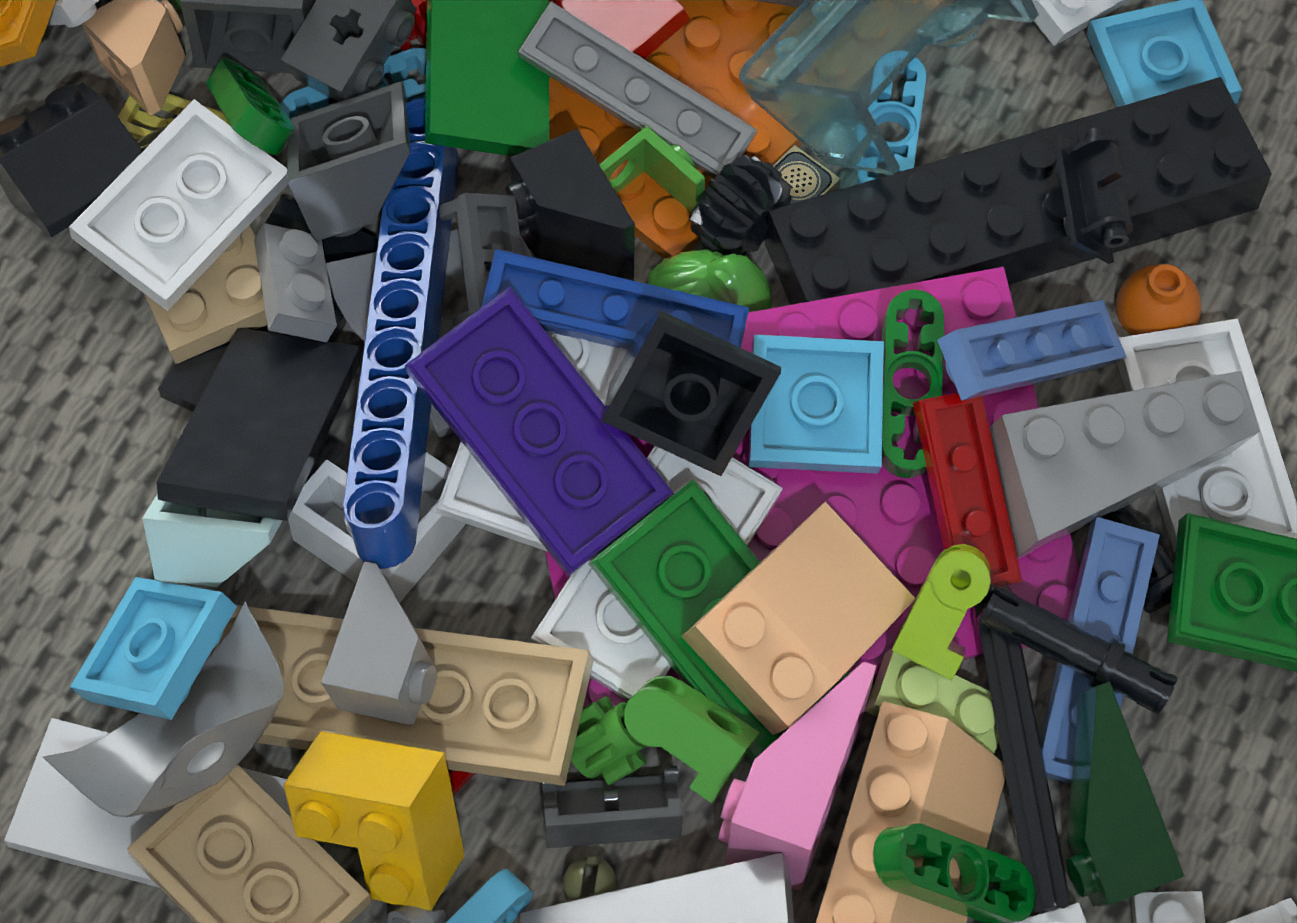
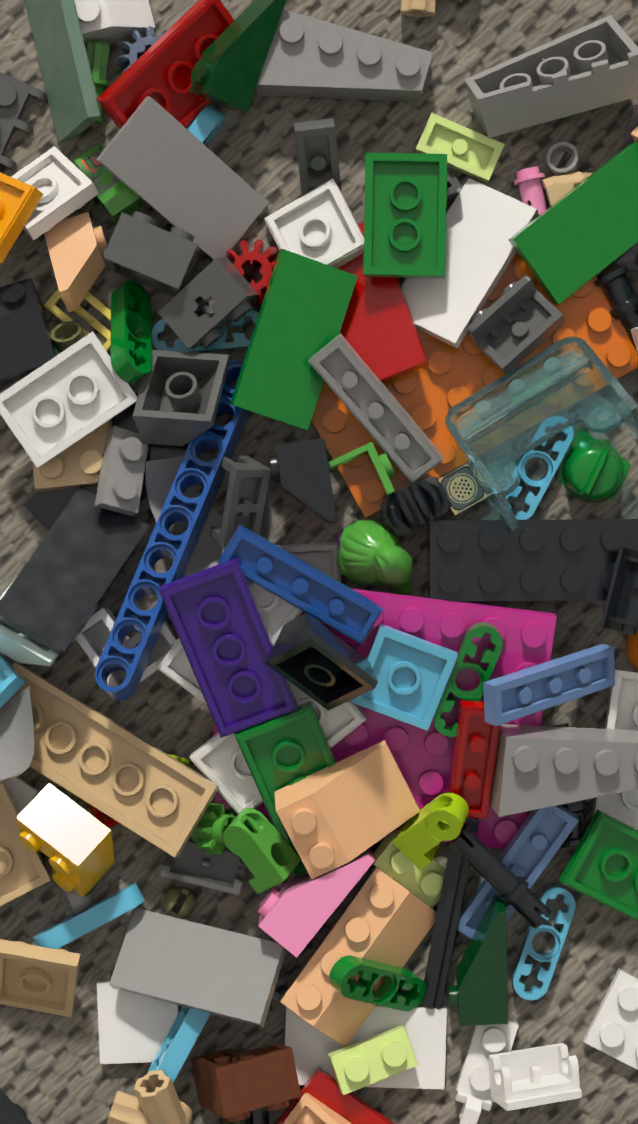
camera: 25 degrees right, 25 degrees up
(378, 657) = (97, 748): light grey slope -> none
(970, 108) = (592, 469): none -> green piece
(1204, 802) = (524, 967): none -> medium azure beam

